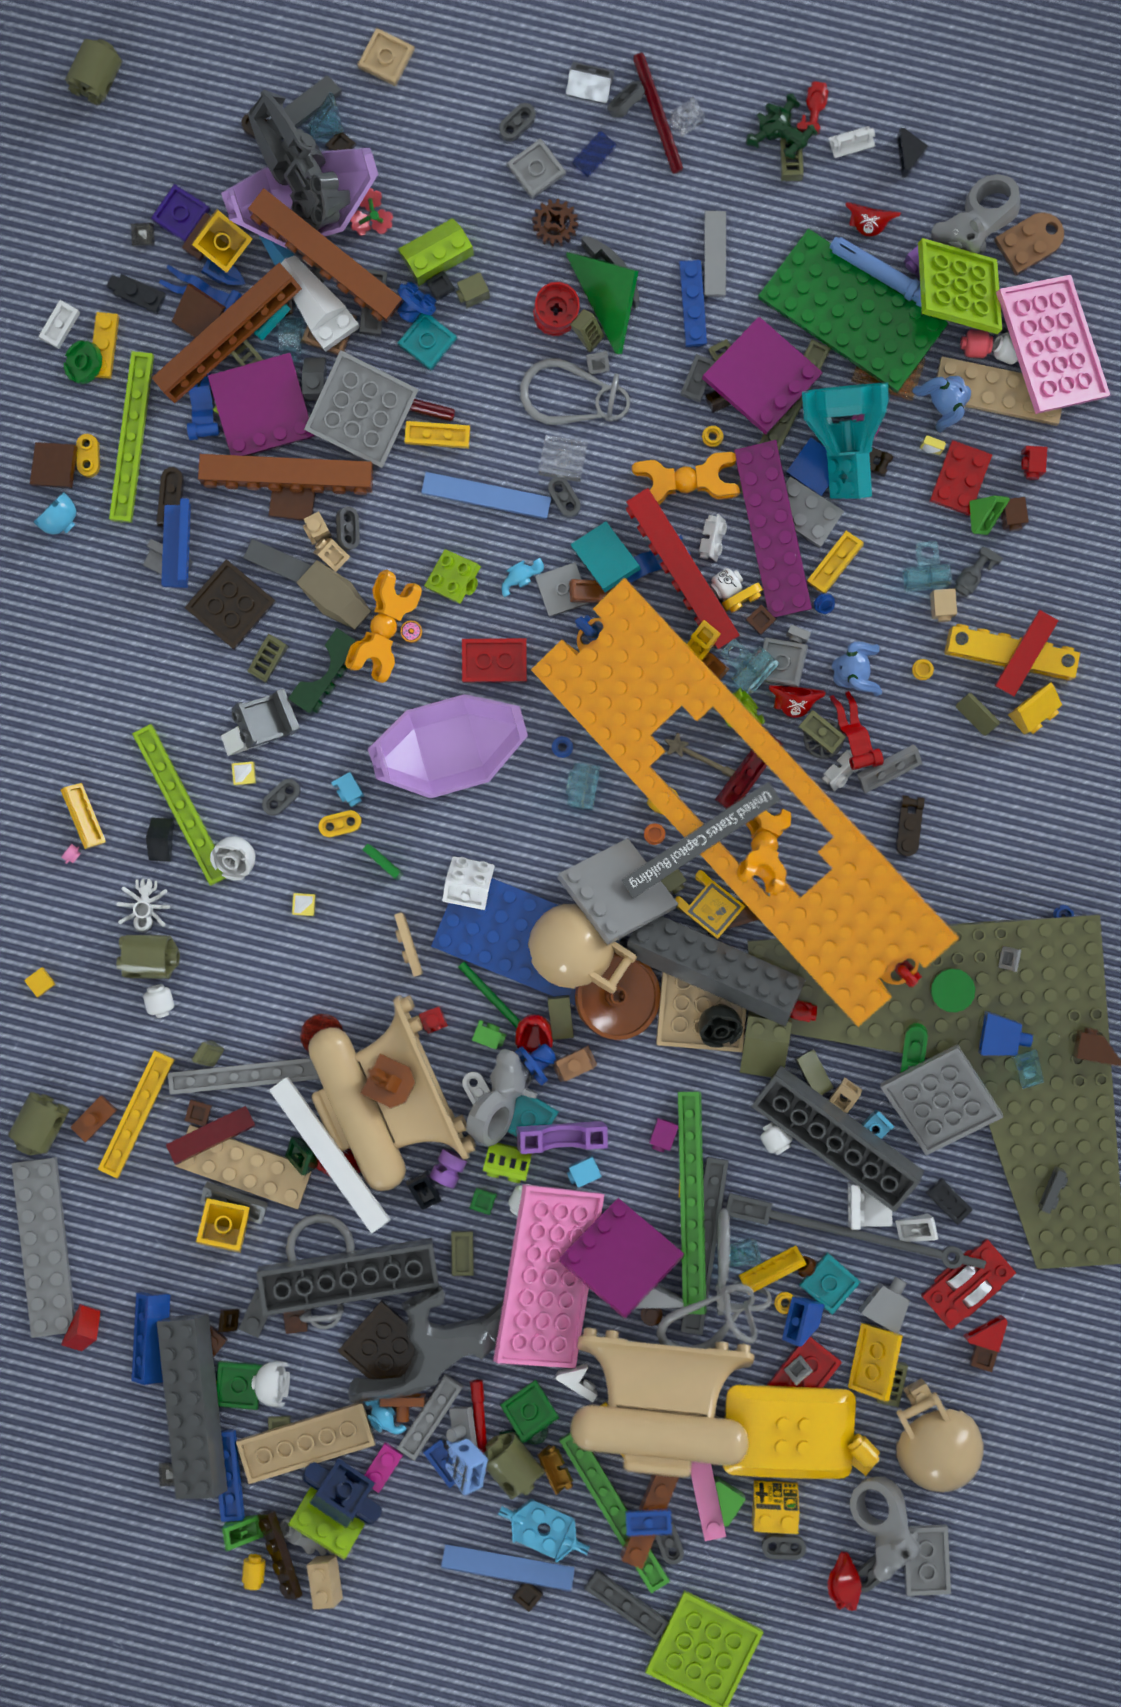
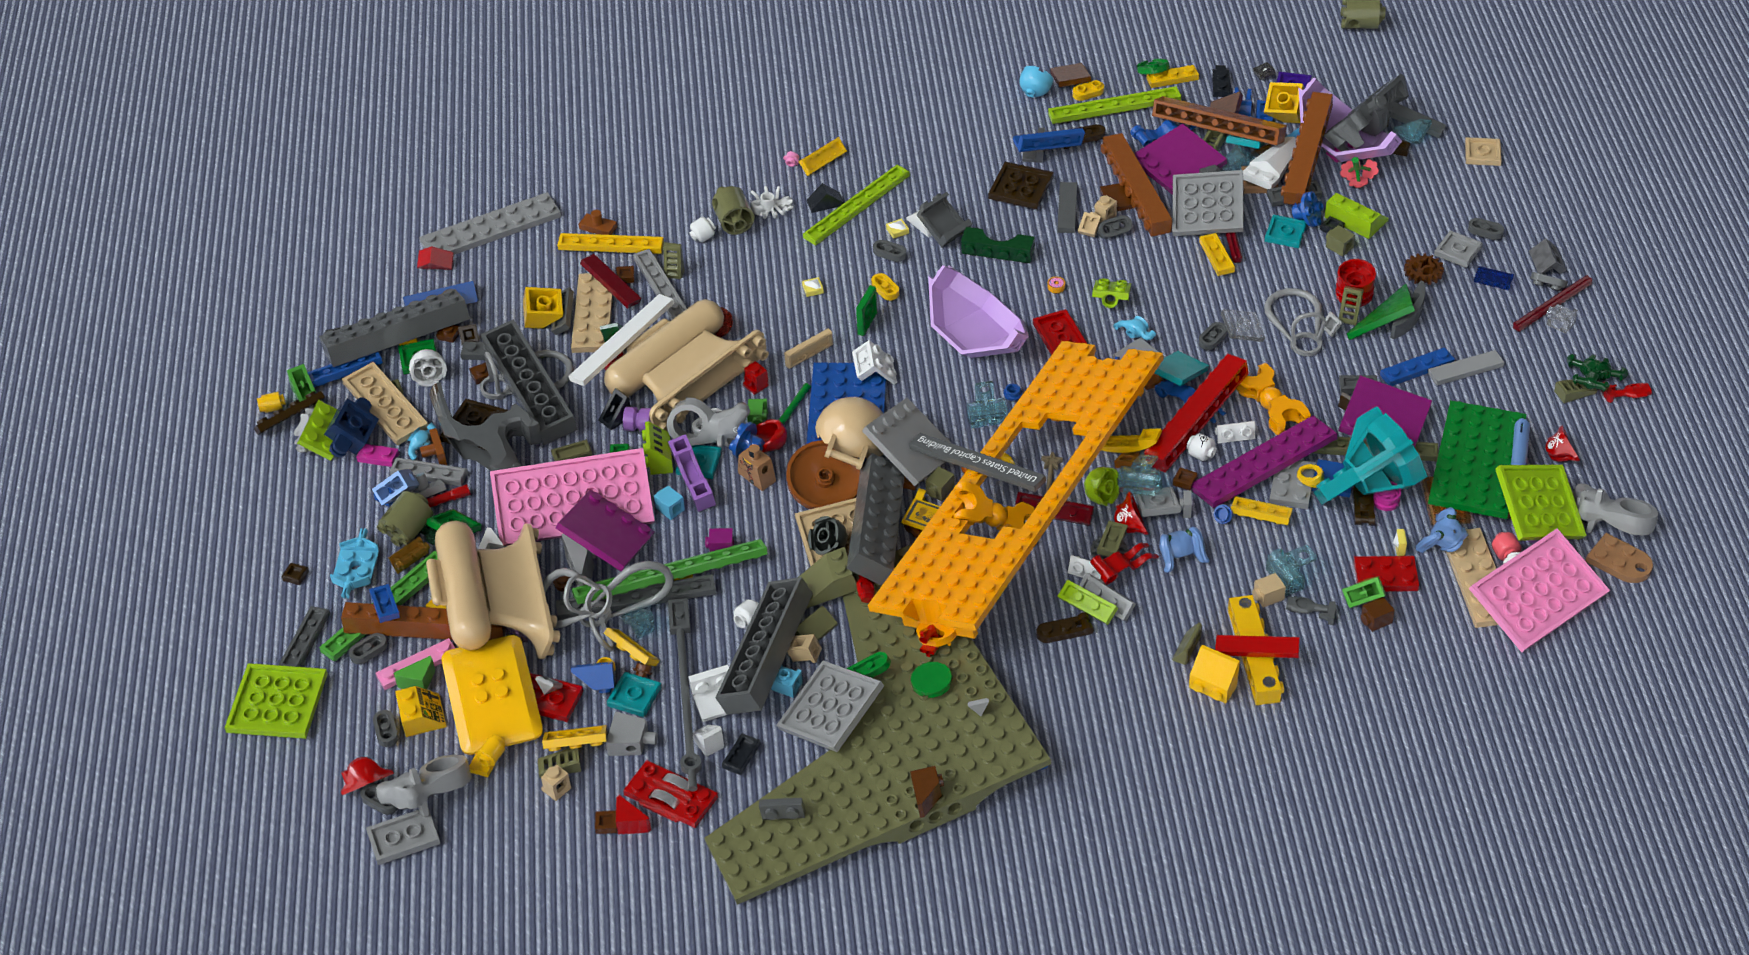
camera: 70 degrees right, 40 degrees down
(37, 1124) = (582, 190): olive cylinder -> none
(40, 982) = (688, 171): yellow tile -> none
(59, 324) = (1173, 50): white plate -> none
(233, 857) = (831, 234): white cylinder -> none
(261, 654) = (993, 216): olive slope -> none
(324, 1582) = (274, 441): tan brick -> none
(334, 595) = (1059, 233): dark tan piece -> none
(348, 789) = (915, 282): medium azure brick -> none
(383, 626) = (1050, 260): light orange piece -> none
(389, 1082) = (694, 346): dark orange piece -> none
(486, 495) = (1187, 295): medium blue tile -> none
(508, 1567) = (316, 552): medium blue tile -> none
(560, 1017) = (785, 452): olive tile -> none
(712, 430) = (1318, 407): yellow plate -> none
(735, 602) = (1197, 461): yellow plate -> none
(822, 497) = (1308, 481): none -> yellow piece
(852, 141) = (1616, 420): white hinge -> none
(890, 790) = (1087, 602): none -> lime plate
(910, 151) = (1632, 456): black slope -> none
(922, 669) = (1205, 595): yellow plate -> none
(940, 1447) = (513, 805): tan windscreen -> none
(1002, 1036) = (906, 721): blue torso -> none
(1028, 1068) = (889, 742): clear light blue slope -> none
(1034, 461) = (1431, 614): red brick -> none

